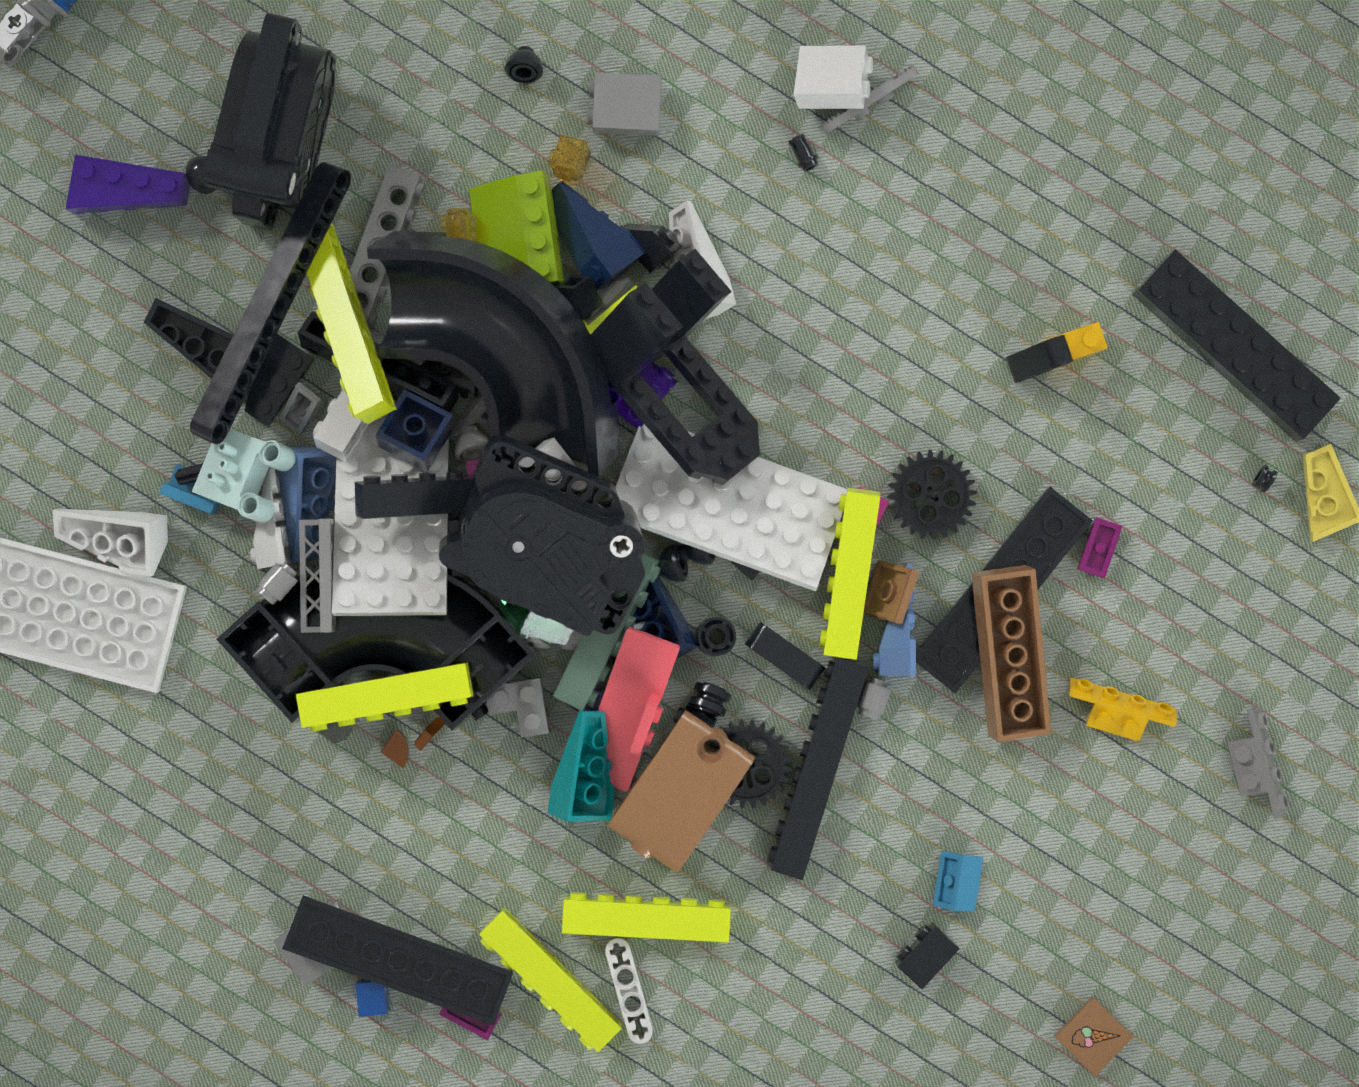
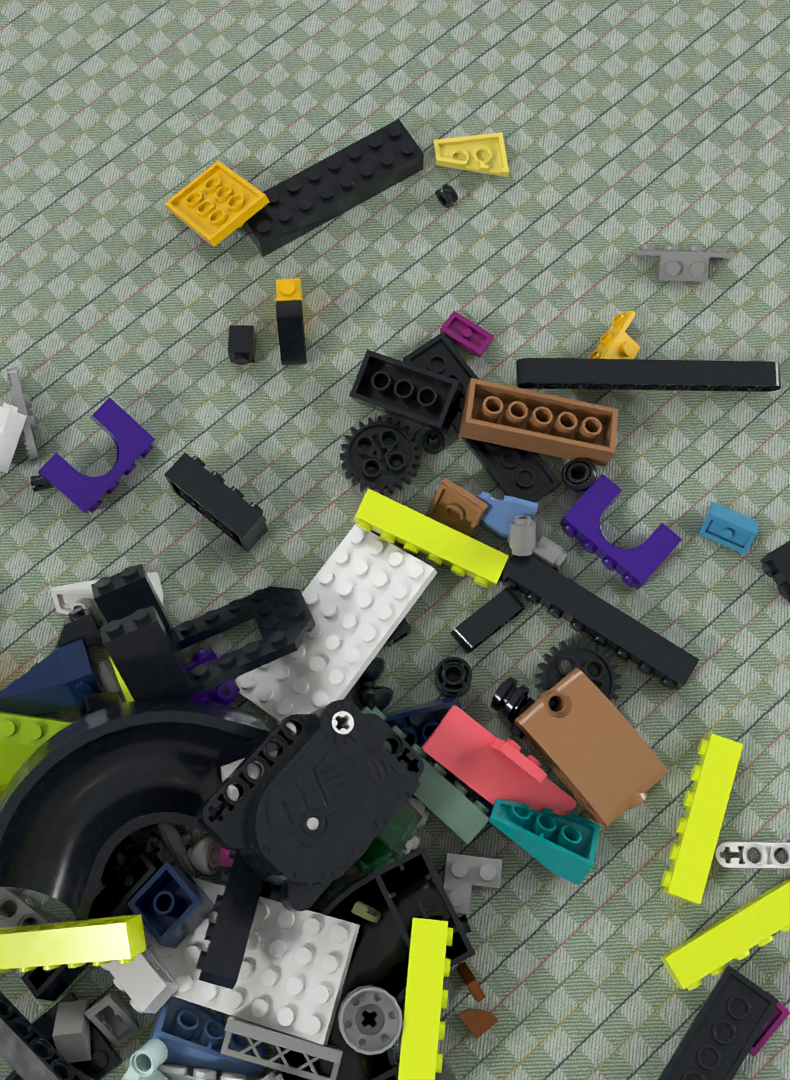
camera: 75 degrees left, 15 degrees down
(281, 374) = (72, 1031): none -> light grey slope
(350, 654) = (388, 1020): none -> light grey wheel
(460, 617) = (366, 912): none -> olive tile
(804, 201) = (130, 442): none -> dark purple arch
(827, 340) = (217, 501): none -> black brick
(877, 668) = (522, 535): none -> light grey brick
(917, 729) = (632, 564): none -> dark purple arch
(968, 710) = (579, 474): none -> black brick
(973, 543) = (433, 434): none -> black bush
(1007, 503) = (407, 391): none -> black brick
(1015, 307) = (242, 344): none -> black brick
(1102, 757) = (647, 374): none -> black beam
(1174, 225) = (216, 203): none -> yellow plate

